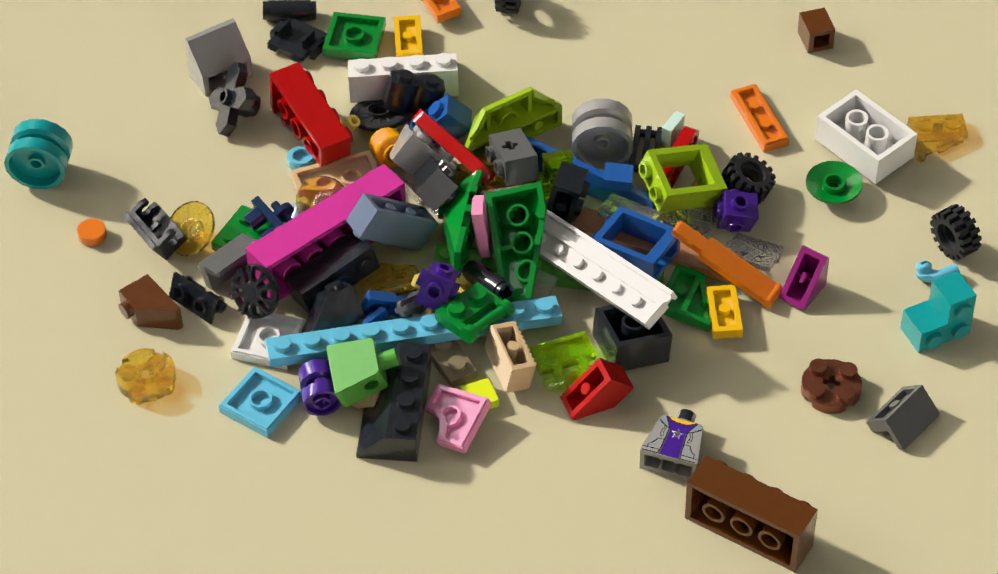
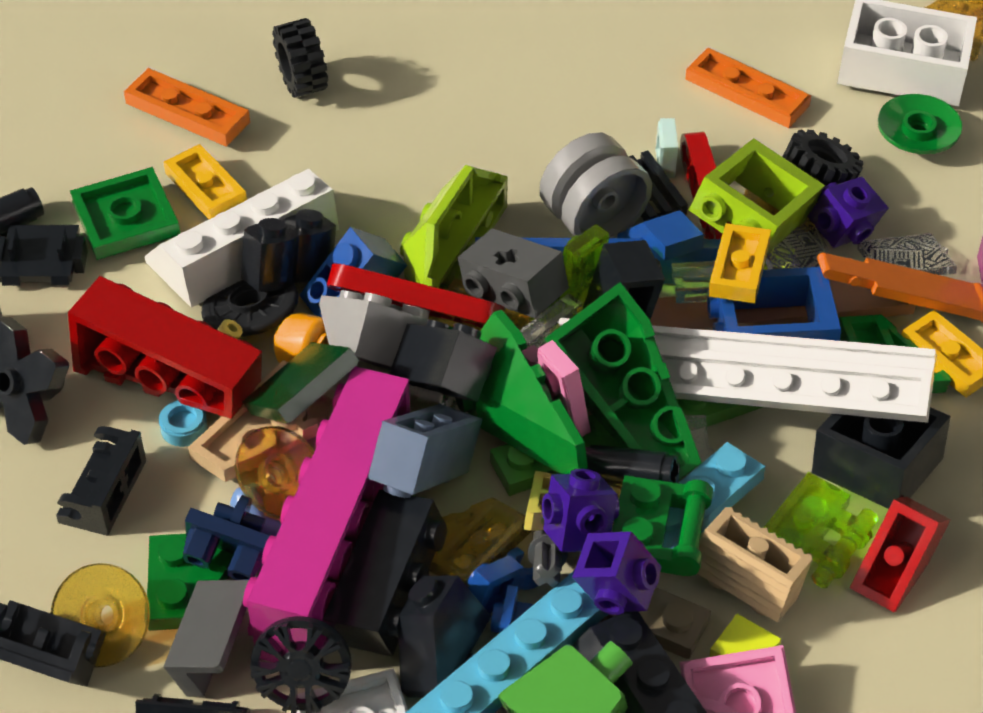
camera: 35 degrees left, 0 degrees up
(242, 170) = (104, 481): none -> black hinge
(357, 161) = (301, 382): none -> dark green tile
(425, 320) = (617, 572): none -> dark purple brick
(629, 205) = (739, 263): none -> yellow plate

